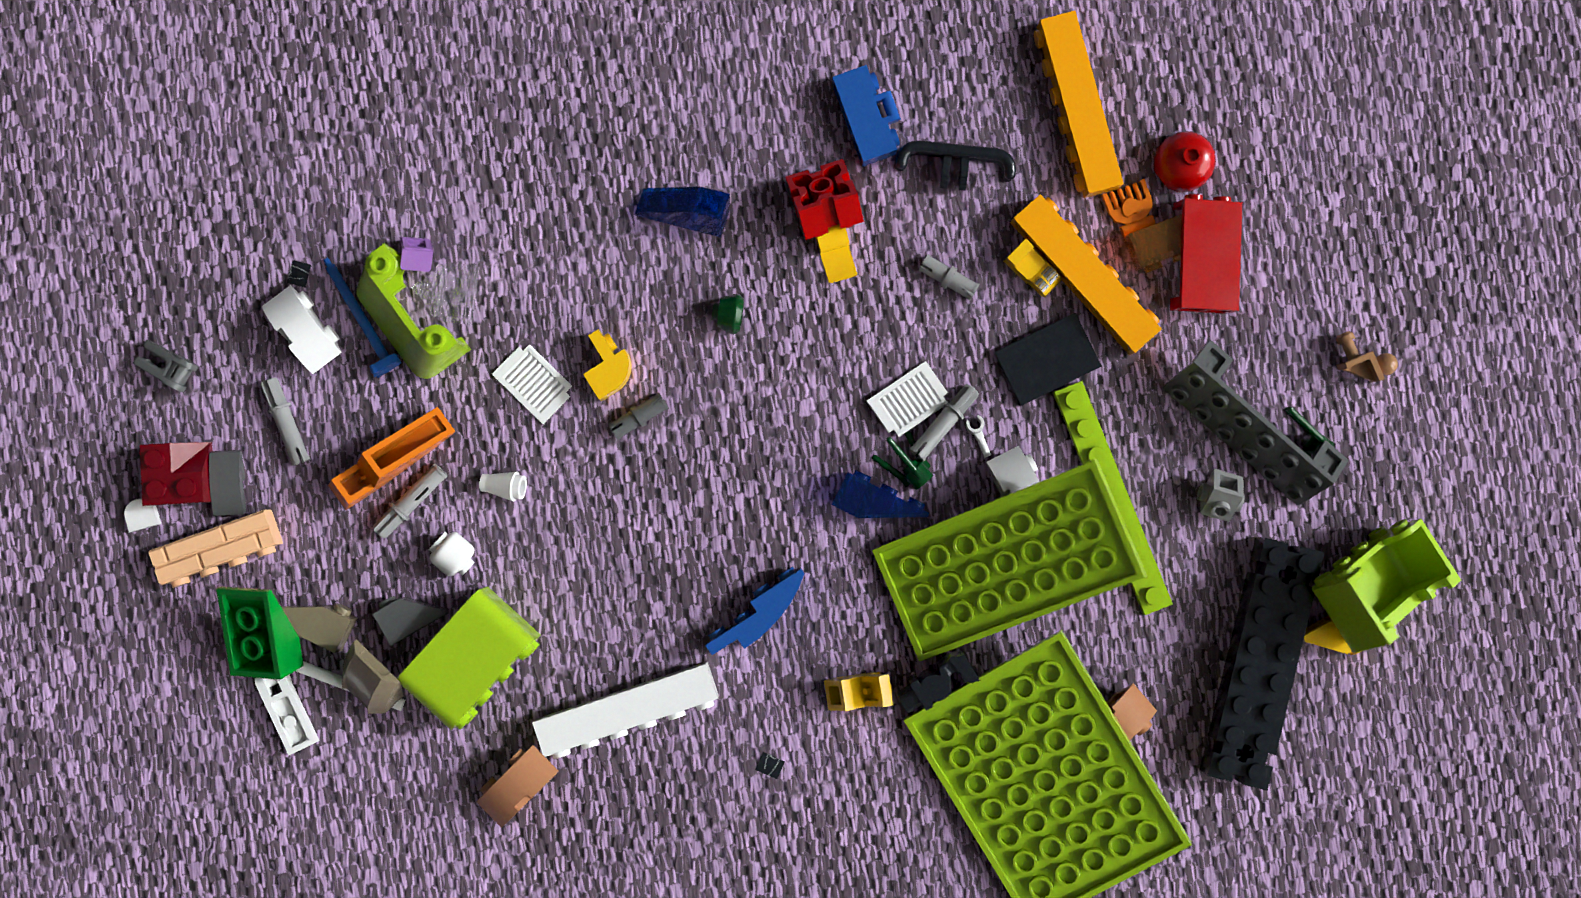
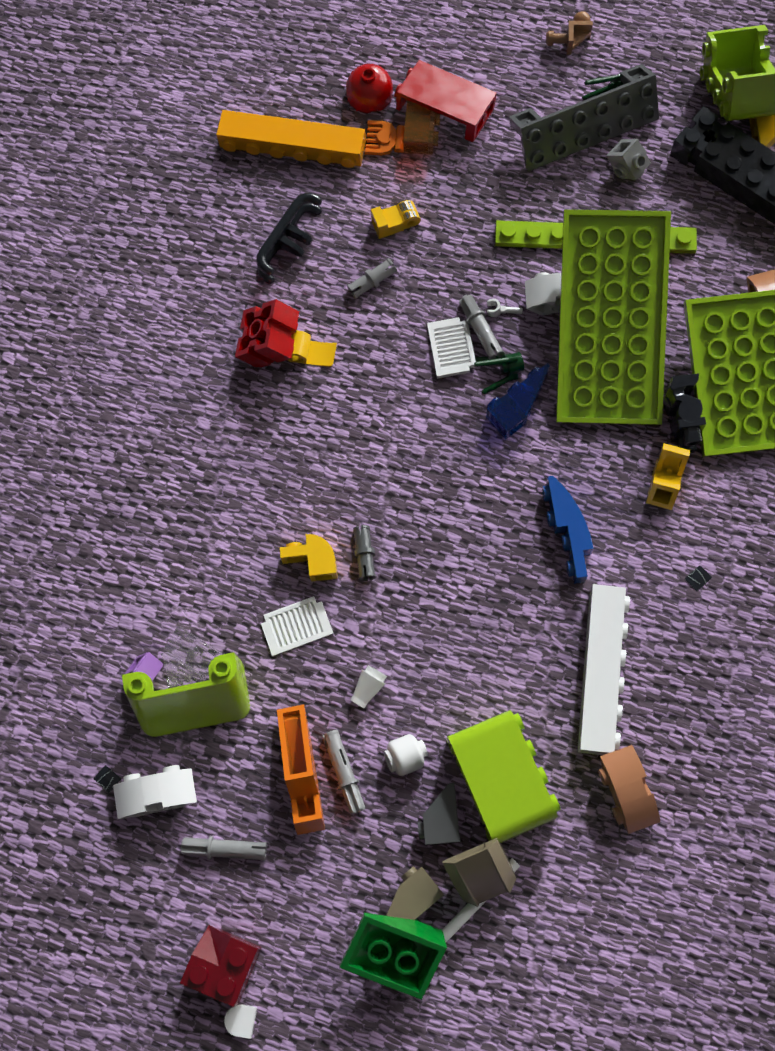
camera: 55 degrees left, 15 degrees down
(176, 369) = (134, 928): dark grey piece -> none
(216, 547) = (301, 963): light nougat brick -> none
(226, 484) = (251, 926): dark grey slope -> none
(287, 714) = (477, 969): white plate -> none
(386, 362) = (218, 737): blue piece -> none
(686, 207) = (220, 438): clear blue slope -> none
(729, 313) = (318, 445): dark green cone -> none
(867, 128) = (219, 283): blue piece -> none
(1047, 359) = (468, 238): black tile -> none
(1086, 275) = (420, 183): light orange brick -> none

